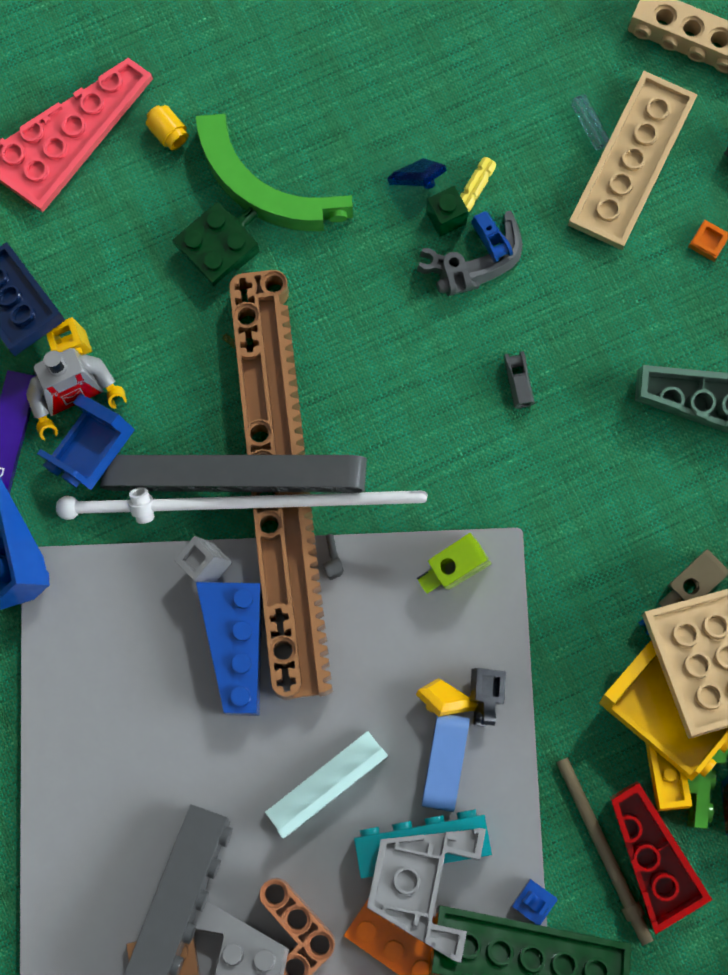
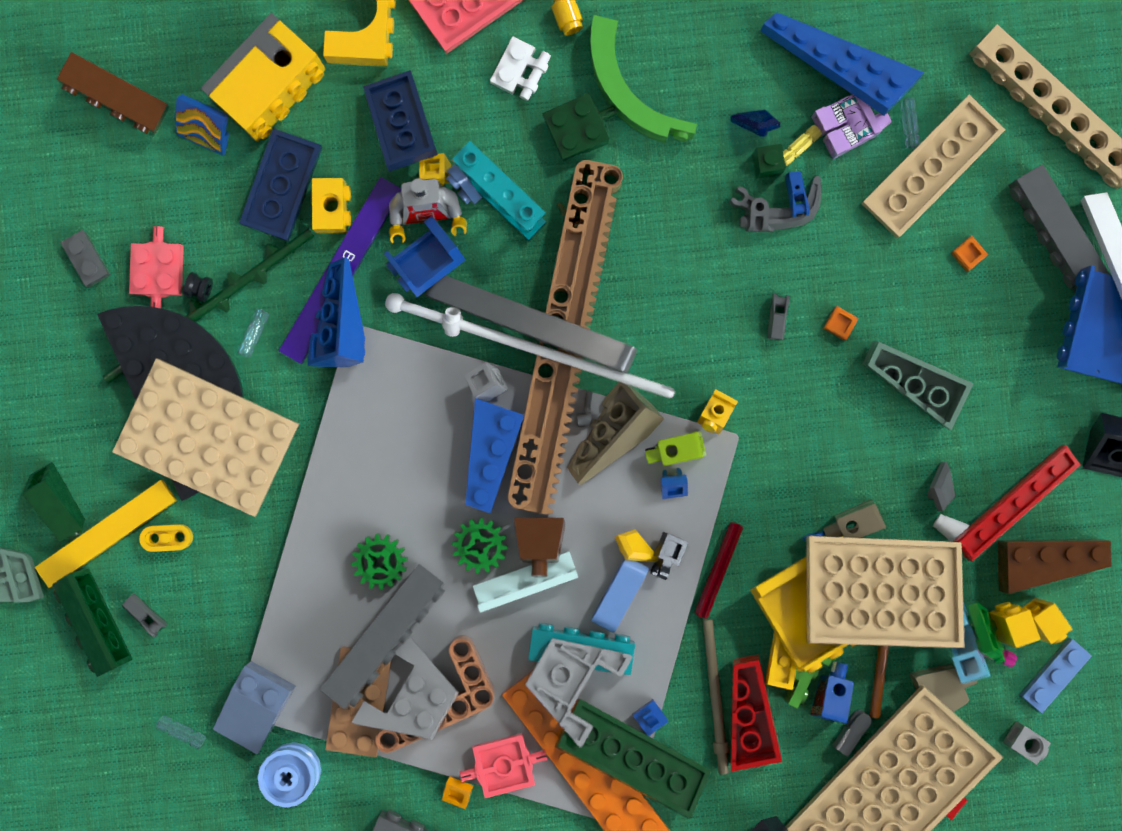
camera: 15 degrees right, 10 degrees up
(101, 342) = (459, 180): none -> medium blue plate
(123, 202) = (513, 65): none -> white plate
(135, 833) = (370, 554): none -> green gear
(150, 339) = (500, 191): none -> teal fence
(239, 772) = (483, 556): none -> green gear
(328, 729) = (539, 542): none -> reddish brown torso
(379, 562) = (620, 427): none -> dark tan wedge
(465, 610) = (674, 486): none -> blue tile
(486, 508) = (721, 404): none -> yellow brick
(513, 83) = (861, 72): none -> blue wing
(523, 141) = (859, 122): none -> lavender hips
(554, 695) = (718, 570): none -> dark red axle
(593, 363) = (840, 323): none -> orange tile

